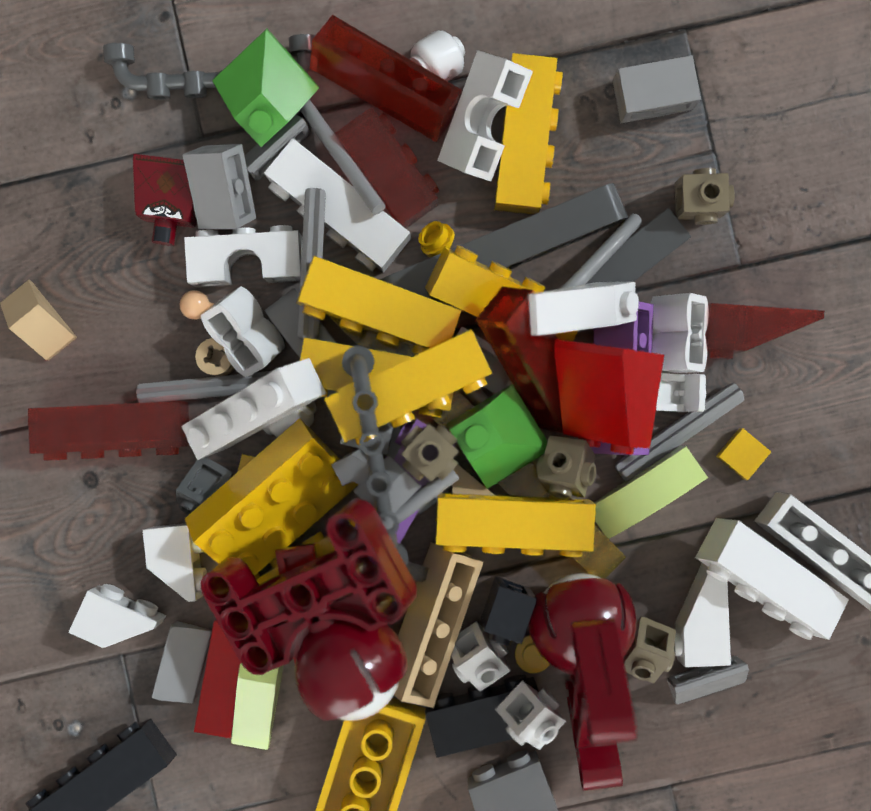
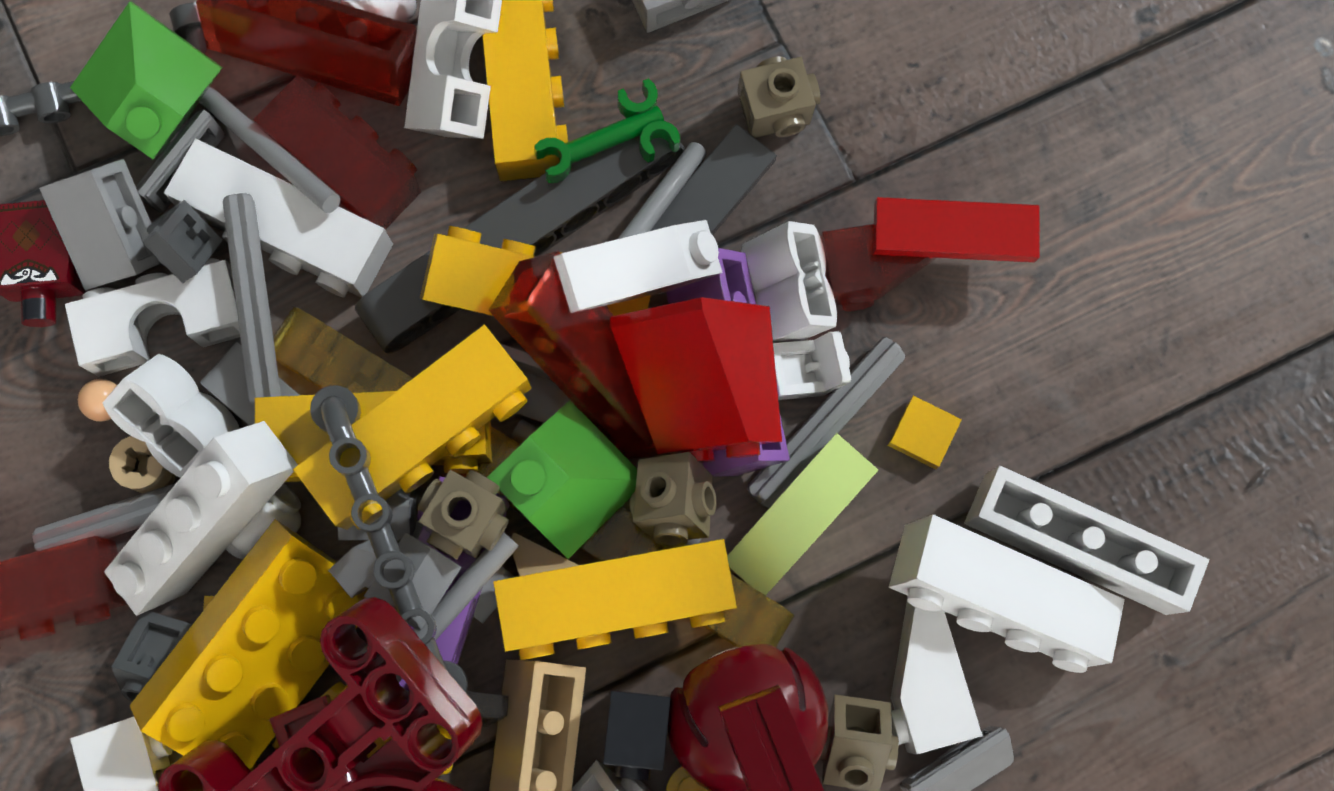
camera: 20 degrees left, 10 degrees down
(271, 211) = (182, 241): none -> dark grey bracket
(376, 306) = (342, 332): yellow brick -> none
(435, 237) = (420, 230): yellow plate -> none
(606, 195) = (640, 120): none -> green bar
(804, 324) = (956, 229): none -> red tile

